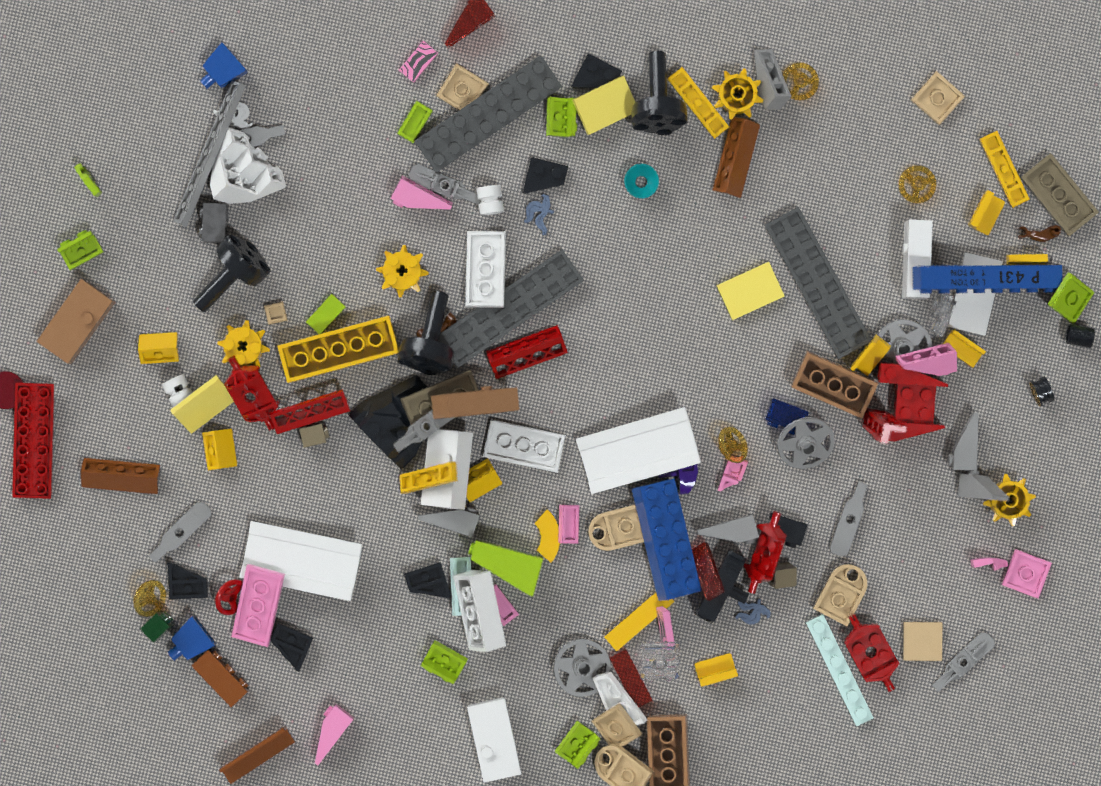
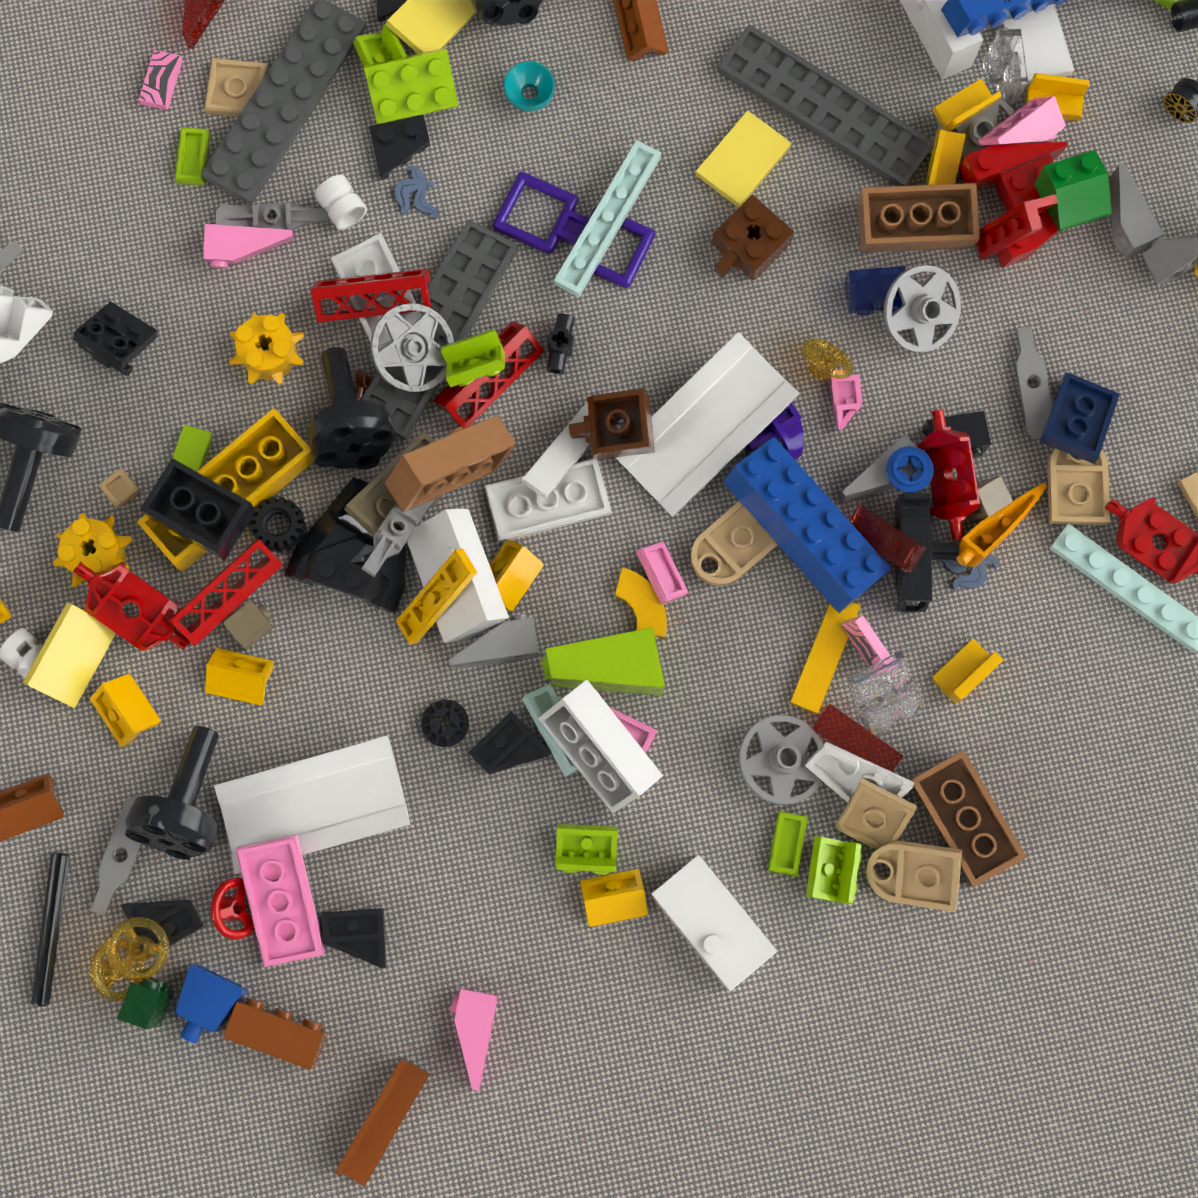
camera: 25 degrees left, 10 degrees down
(121, 555) = (50, 929): none -> black axle
(166, 586) = (149, 948): none -> clear yellow piece
(218, 533) = (173, 821): none -> black piece
(293, 462) = (238, 676): none -> yellow panel
(316, 219) = (114, 337): none -> black plate
(316, 360) = (198, 509): none -> black brick
(358, 371) = (275, 507): none -> black tyre
(408, 549) = (449, 736): none -> black gear
(446, 696) = (614, 897): none -> yellow panel
(480, 267) = (366, 285): none -> red fence
(488, 318) = (410, 347): none -> light grey wheel
(520, 344) = (473, 358): none -> lime bracket
(551, 421) = (557, 459): none -> white tile
(560, 716) = (787, 843): none -> lime tile
(568, 146) = (411, 85): none -> lime plate
(574, 426) = (604, 414): none -> reddish brown hinge
(584, 346) = (562, 332): none -> black axle
(623, 285) = (569, 227): none -> dark purple bar
(646, 291) = (607, 218): none -> light aqua plate
(714, 347) = (740, 252): none -> reddish brown hinge
(740, 529) = (919, 460): none -> blue gear
(776, 597) = (994, 529): none -> light orange piece
(863, 556) = (1080, 418): none -> dark blue plate
(901, 329) = (965, 105): none -> yellow panel
(933, 420) = (1080, 189): none -> green slope

